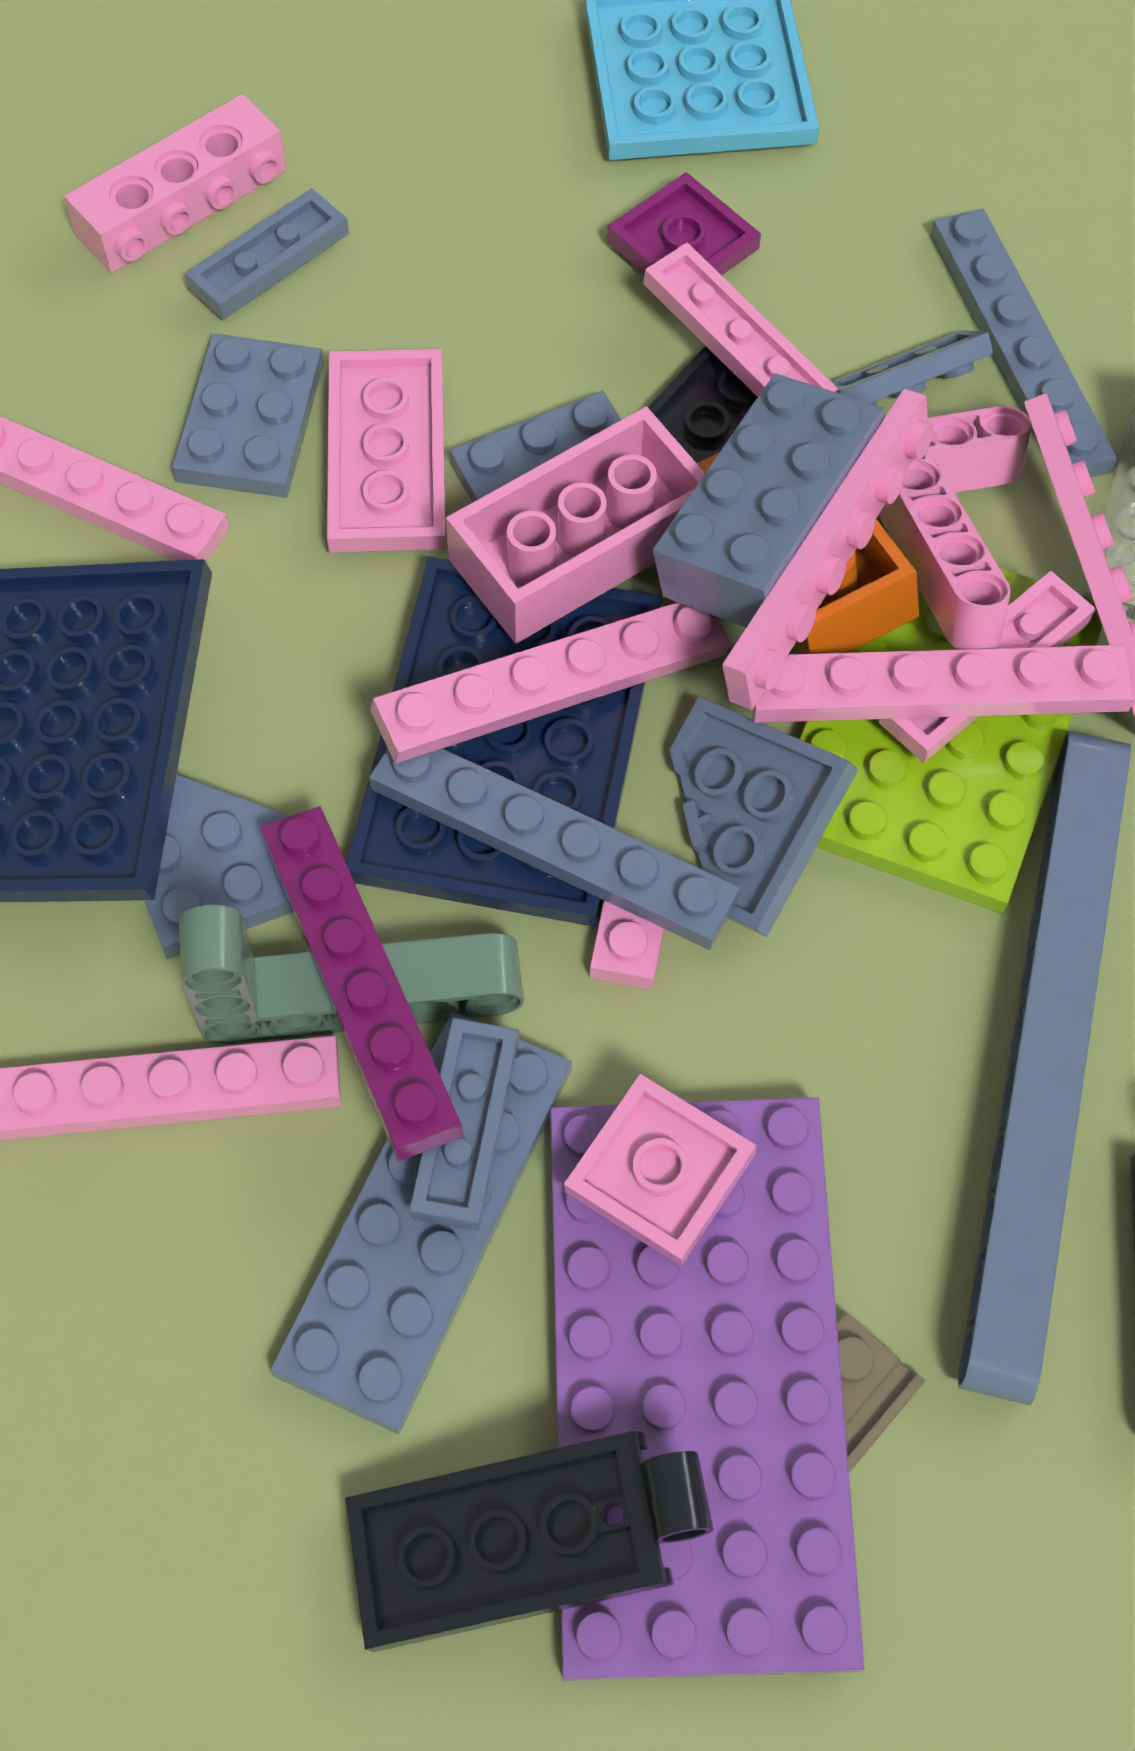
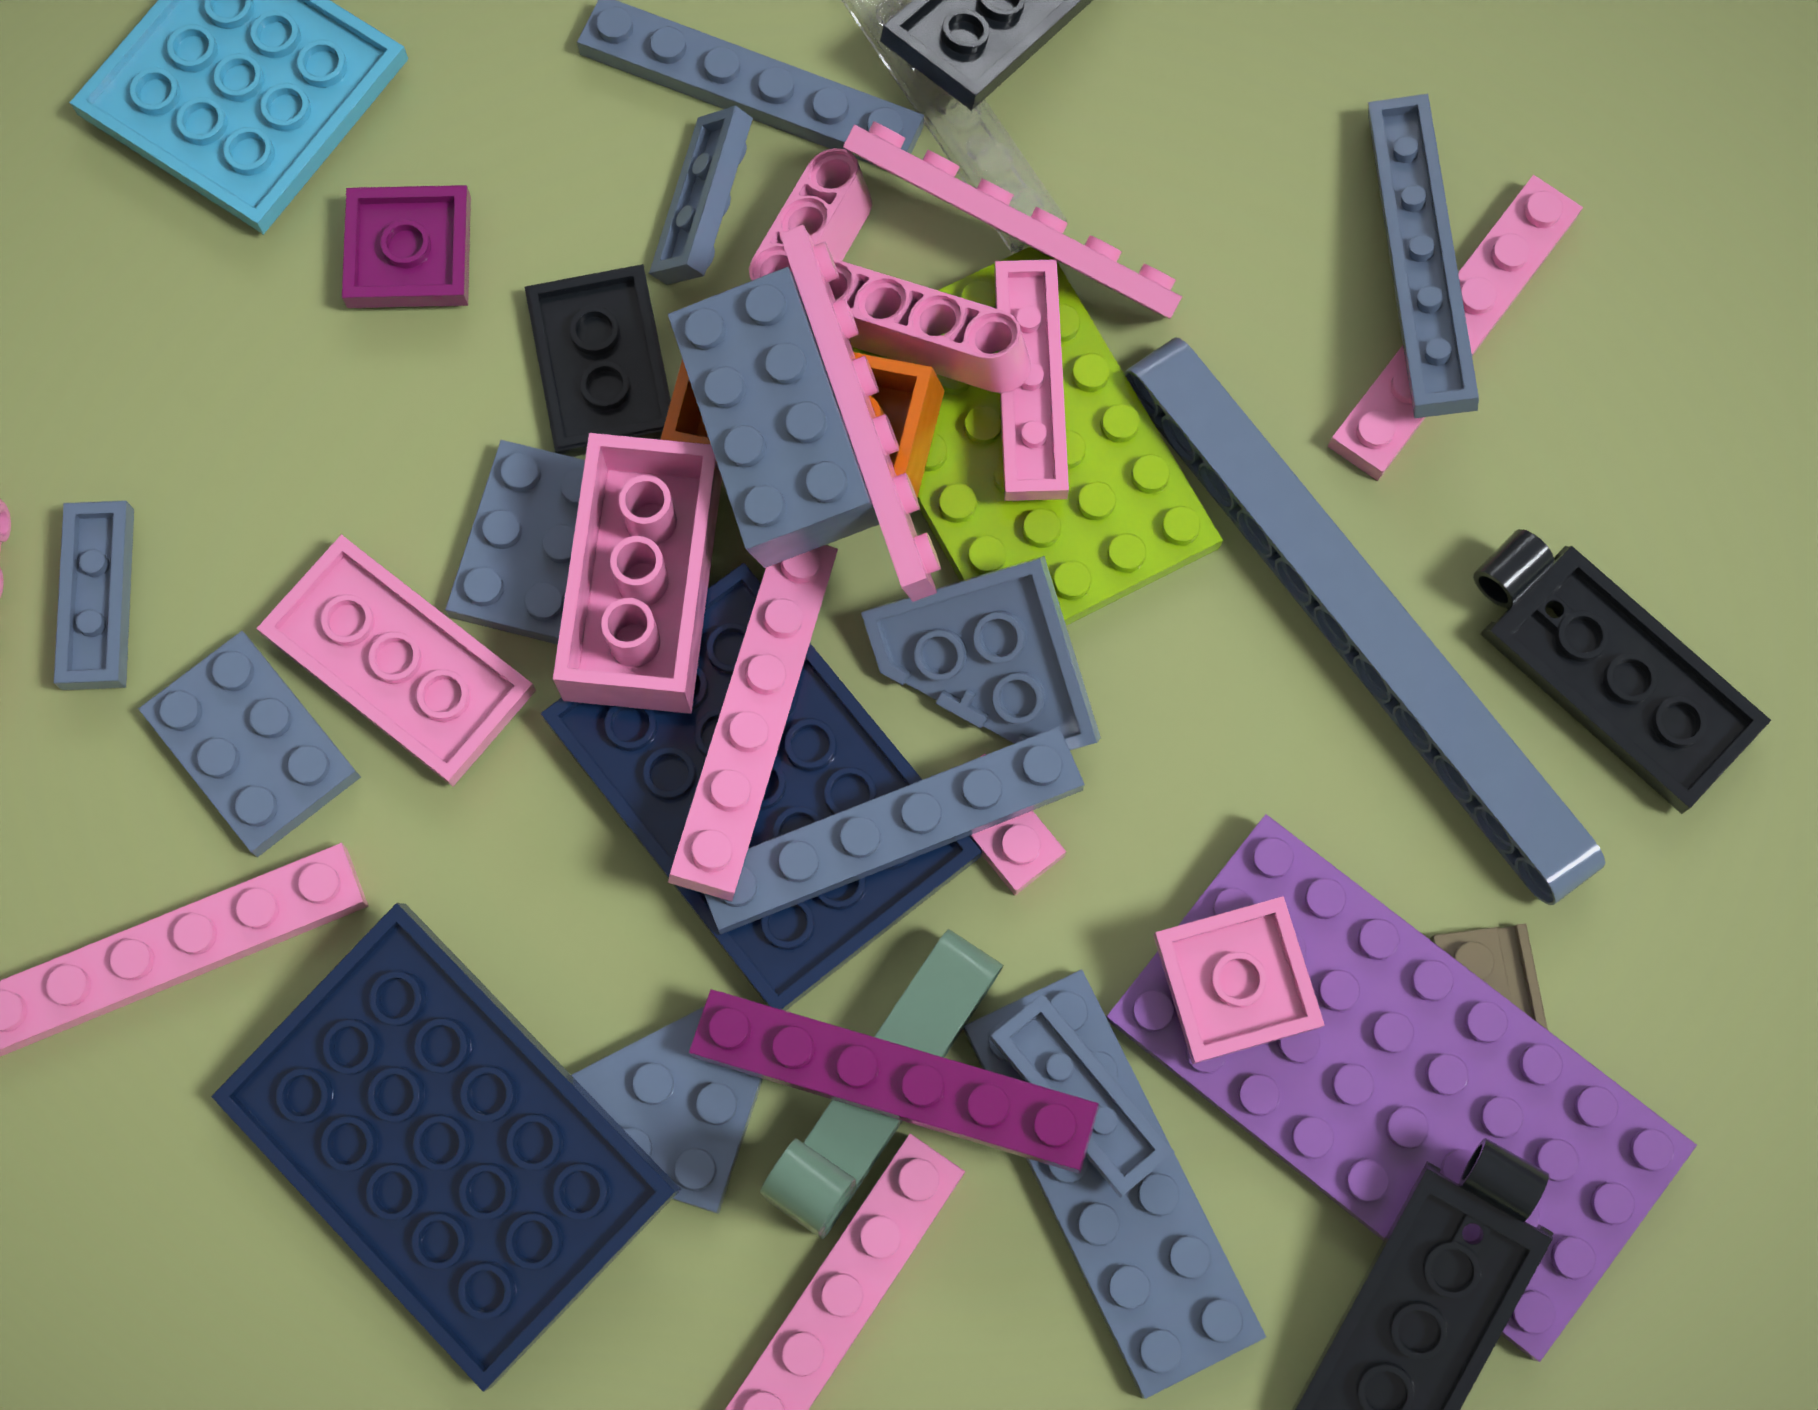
camera: 50 degrees left, 10 degrees up
(727, 322) = (556, 292): bright pink plate -> none
(949, 684) = (1033, 421): bright pink plate -> none

